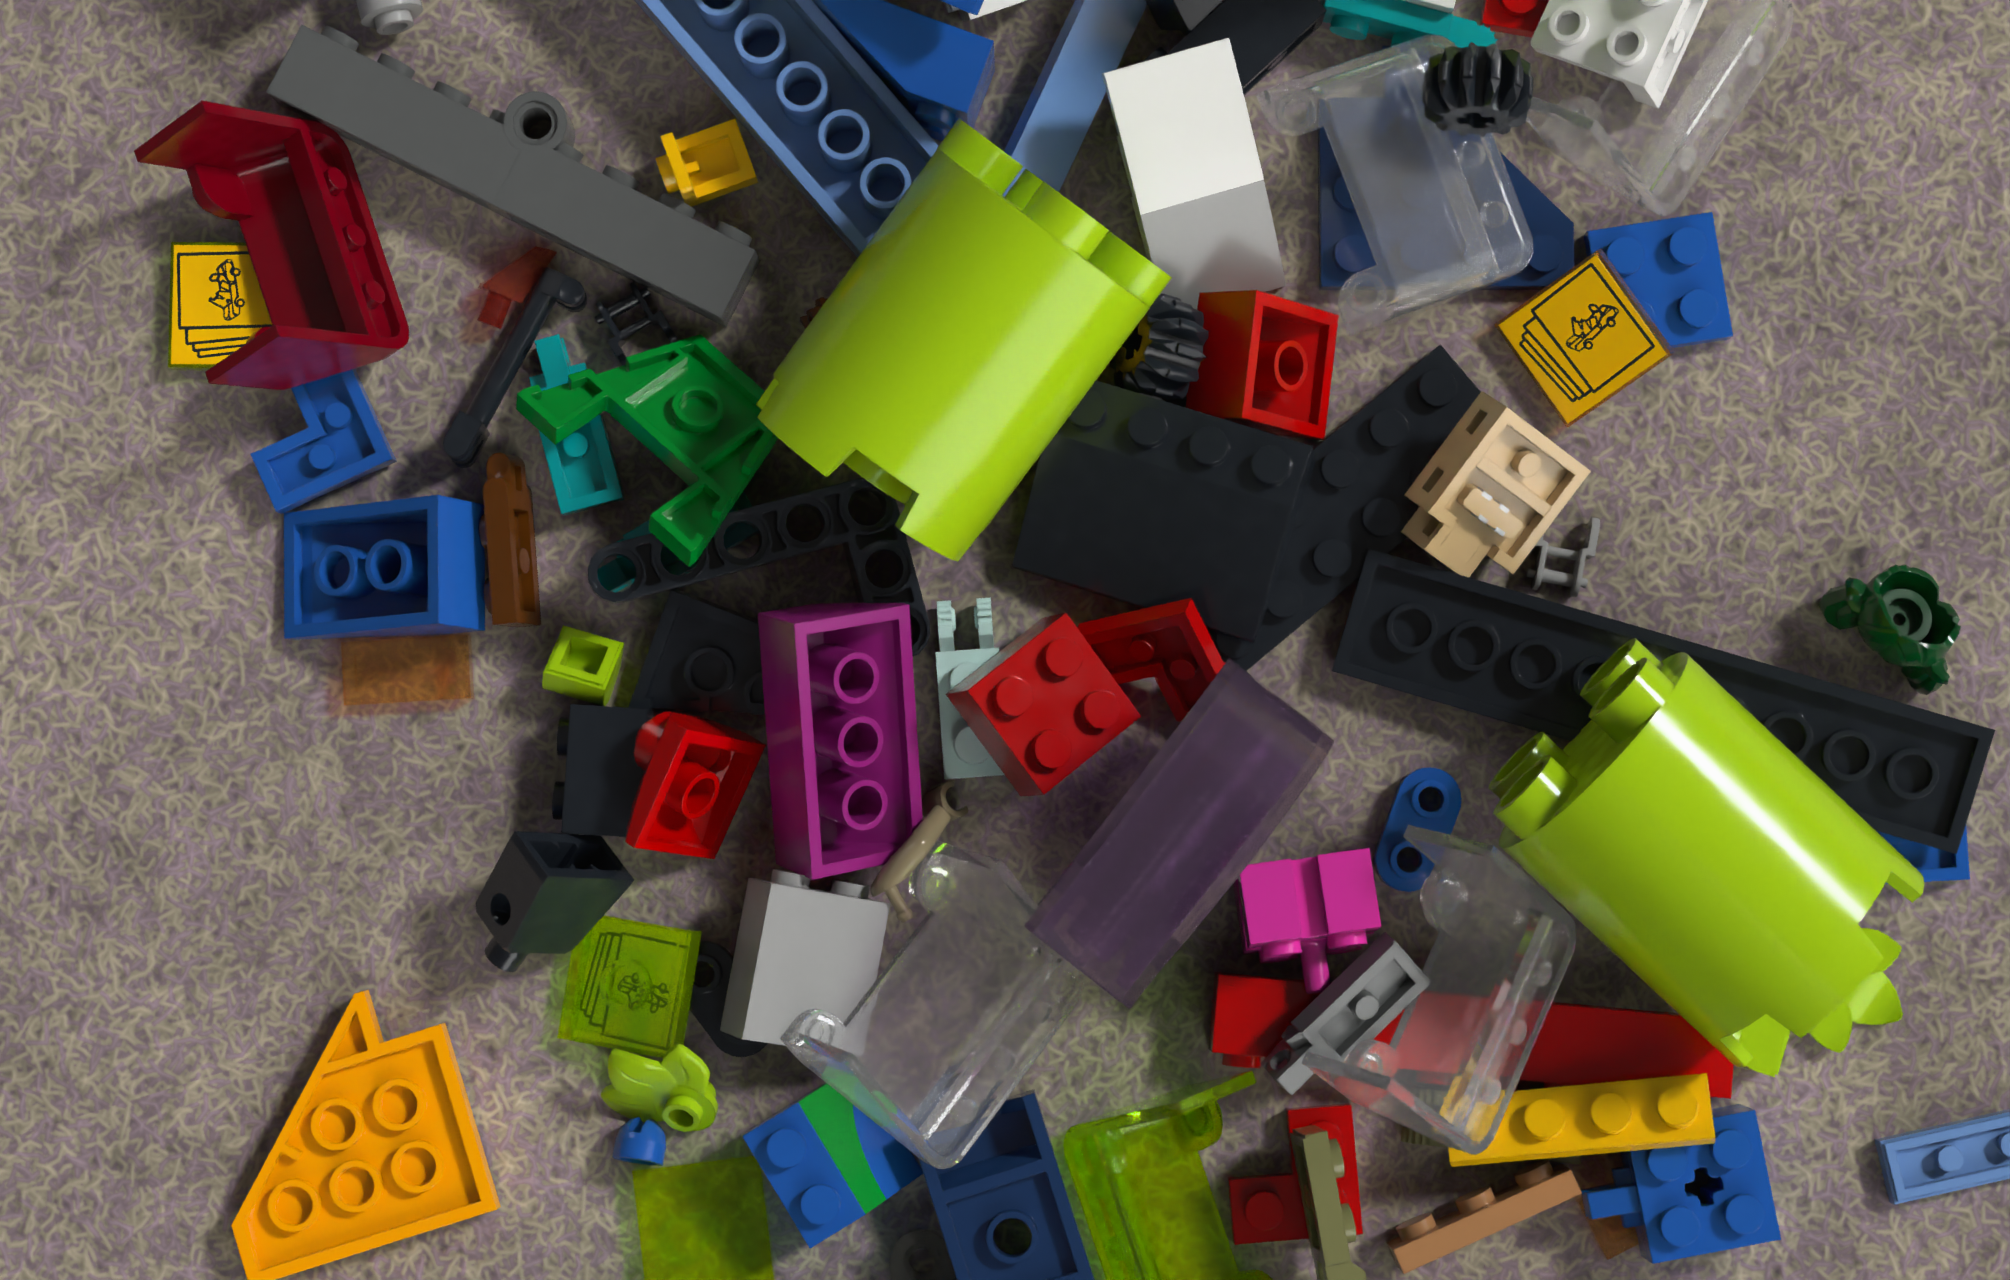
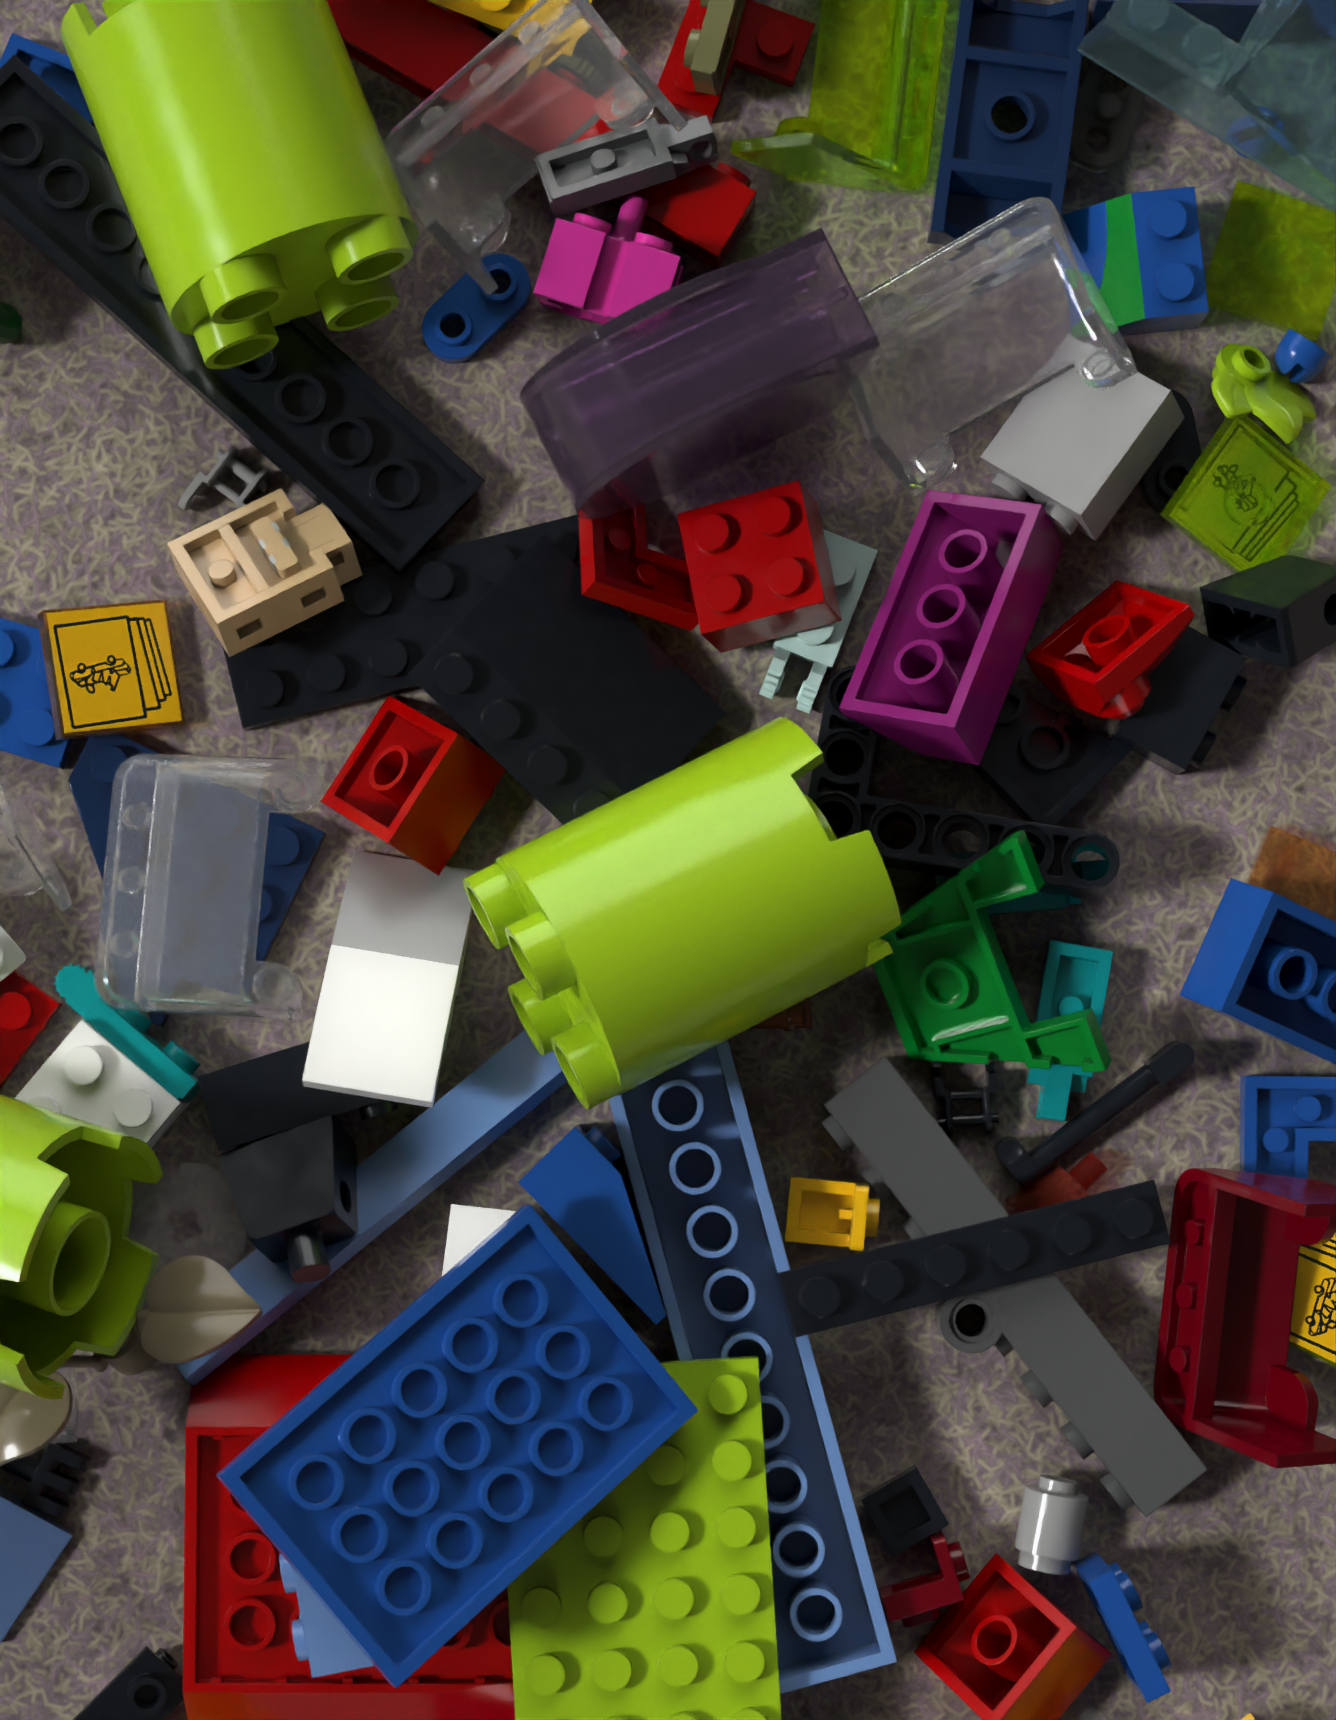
camera: 160 degrees left, 0 degrees up
(510, 543) = (1170, 950): reddish brown hinge -> none
(558, 173) = (972, 1258): none -> black plate
(583, 666) = (1156, 804): lime brick -> none
(916, 847) = (930, 496): dark tan piece -> none
(1162, 351) = (494, 827): black gear -> none
(1477, 90) = (100, 922): black gear -> none

